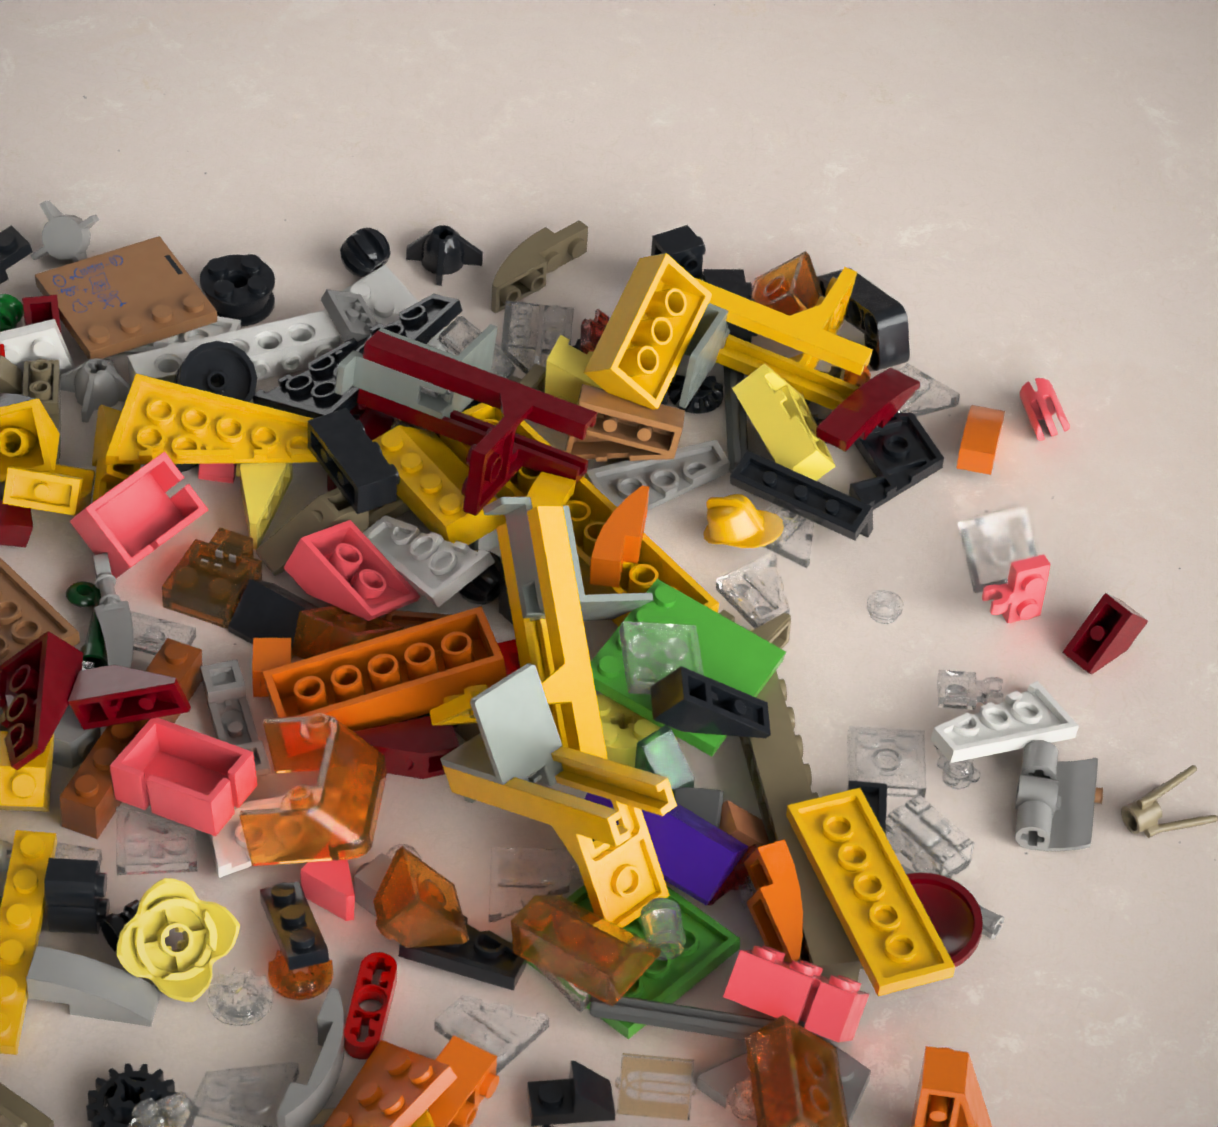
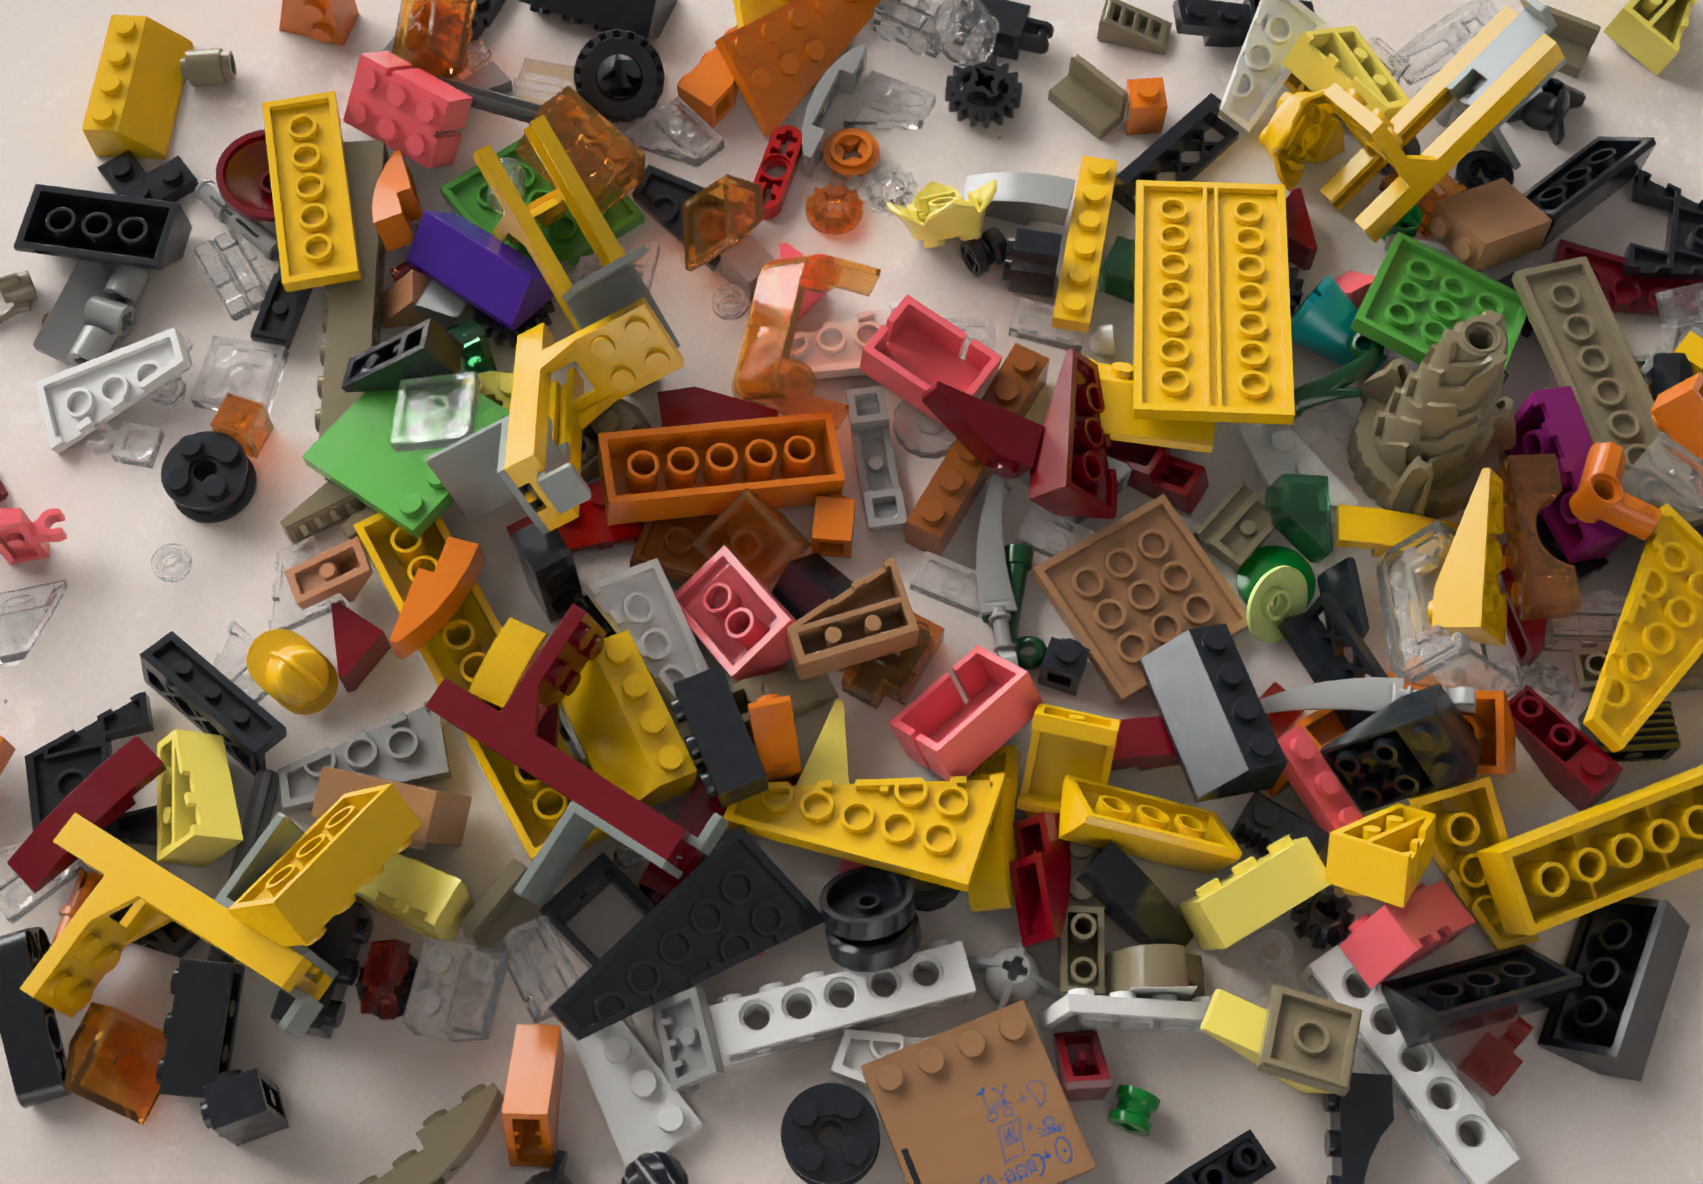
camera: 170 degrees left, 20 degrees up
(51, 574) = (1067, 659): none -> black brick
(75, 418) = (1040, 878): none -> dark red slope
(242, 543) = (855, 626): none -> medium nougat wedge
(282, 1018) = (848, 141): none -> orange gear
(294, 925) = (834, 221): black plate -> none
(305, 476) = (775, 738): none -> orange slope
(466, 283) = (533, 1095): none -> orange slope
(564, 1048) = (648, 61): none -> black tyre
(695, 551) = (357, 646): none -> dark red slope
(729, 575) = (335, 571): none -> nougat slope
(861, 701) = (245, 422): none -> clear orange brick
(877, 665) = (217, 495): none -> black wheel
(1049, 1056) = (208, 67): none -> dark tan brick
(1068, 928) = (166, 183): none -> black plate
(1074, 854) = (103, 227): none -> black slope
(1117, 1026) = (136, 89): none -> yellow slope

